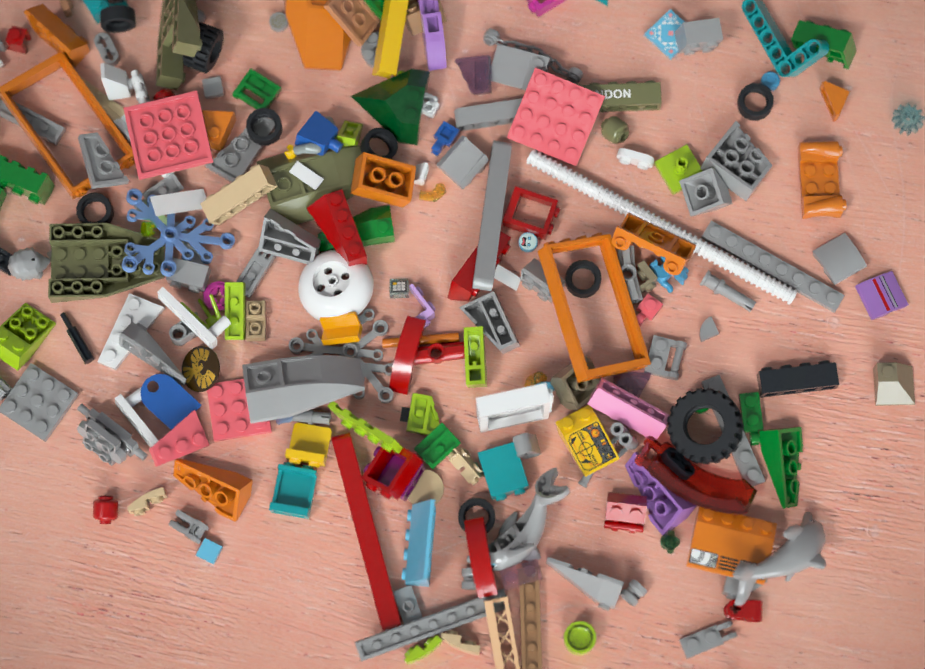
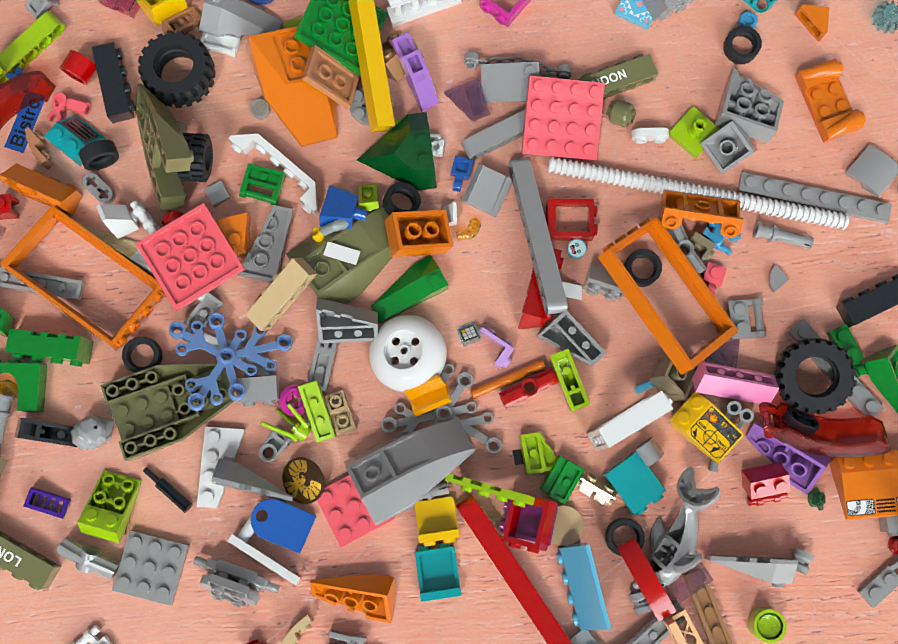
camera: 25 degrees left, 5 degrees up
(99, 163) = (130, 308): light grey wing -> none
(147, 229) = (201, 358): clear neon green hinge -> none
(178, 202) = (222, 320): white sticker -> none
(181, 440) = (310, 560): coral wing -> none
(208, 336) = (300, 446): white piece -> none
(254, 50) = (247, 142): none -> white slope
(264, 140) = (273, 205): black tyre -> none
(337, 223) = (389, 291): red wedge -> none
(406, 354) = (501, 399): red slope -> none
(535, 378) = (629, 382): clear yellow arm -> none

